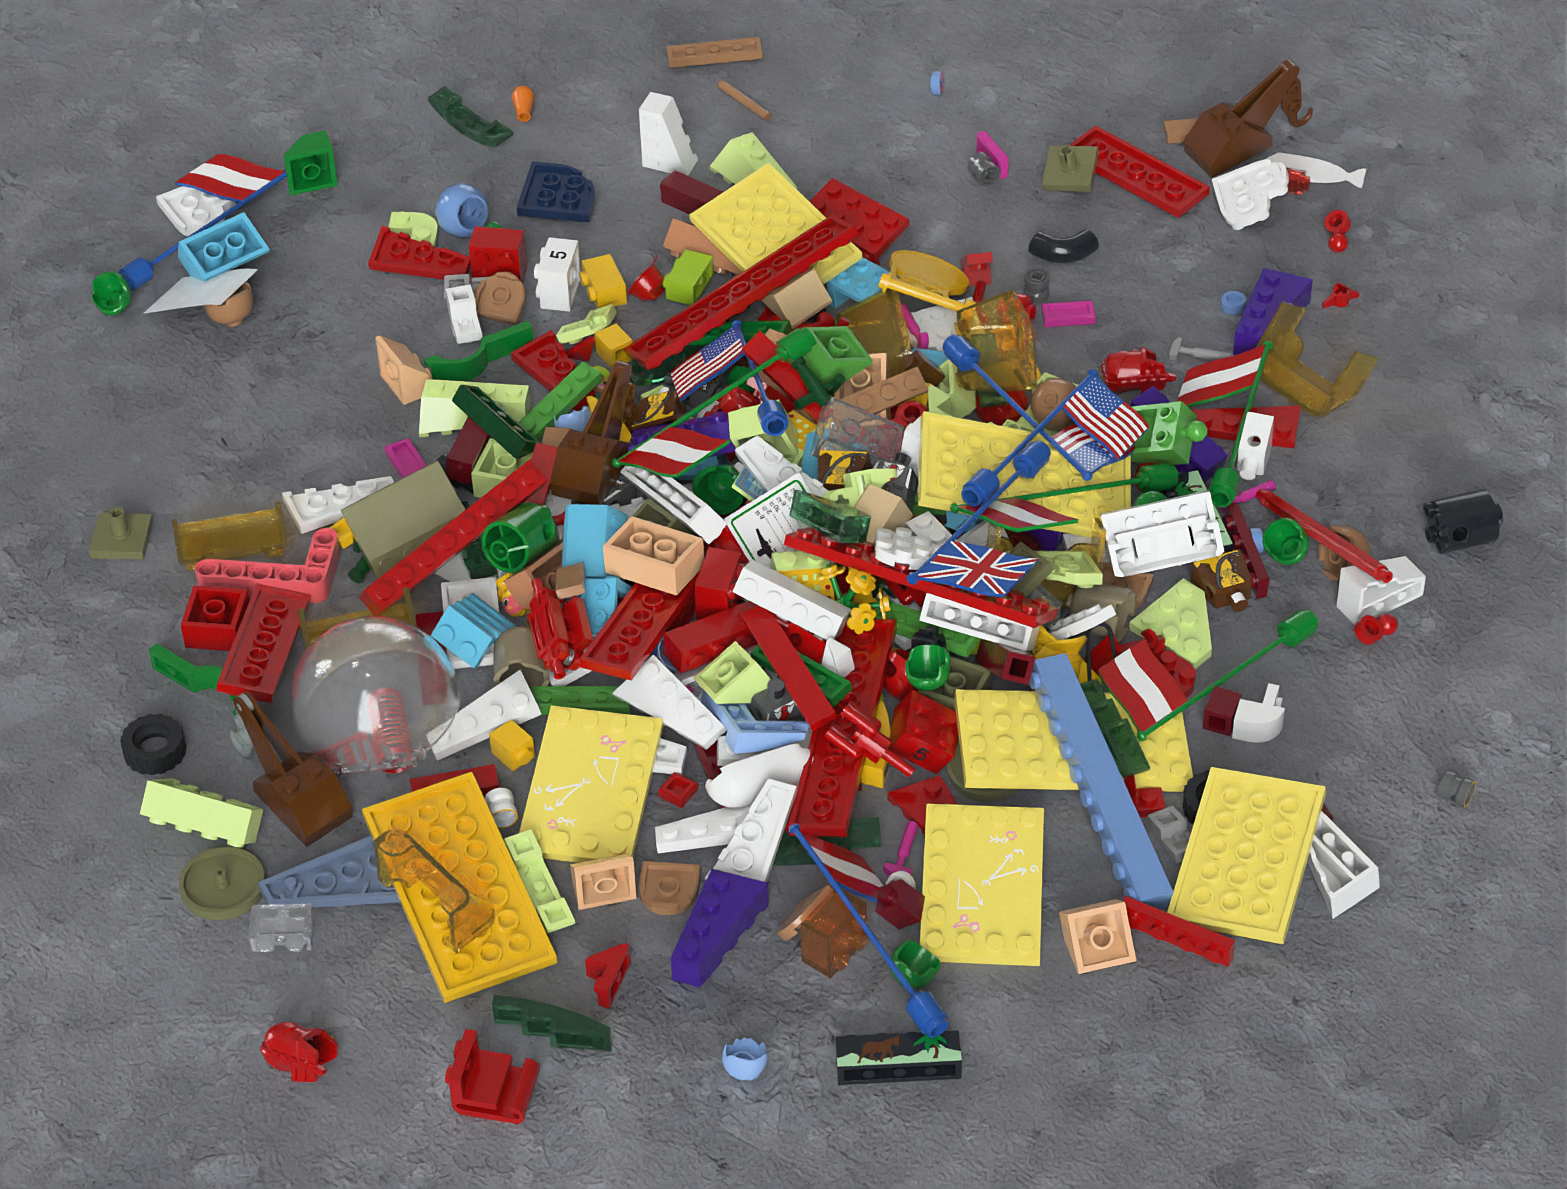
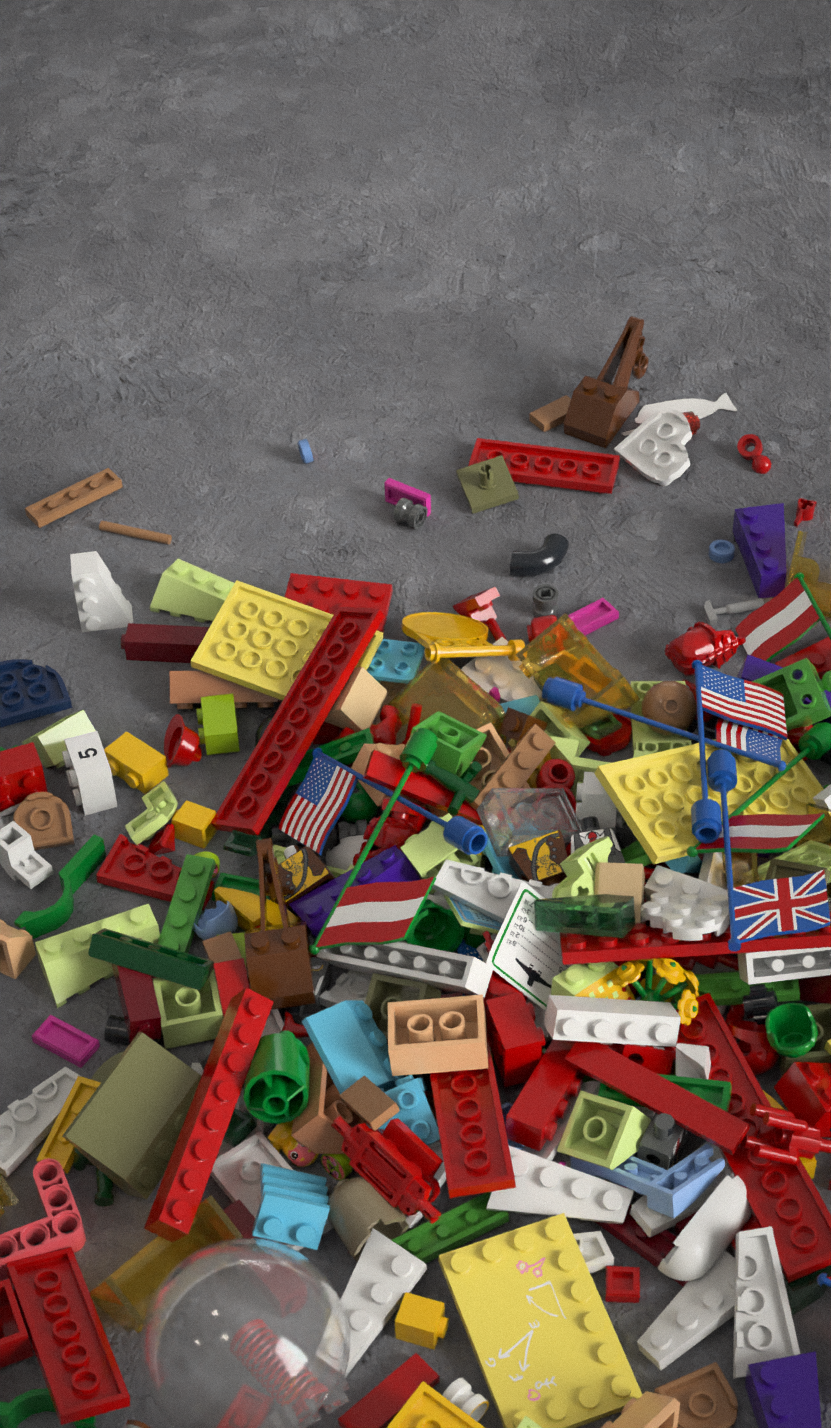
camera: 30 degrees left, 0 degrees up
(569, 231) = (51, 740): none -> yellowish green slope

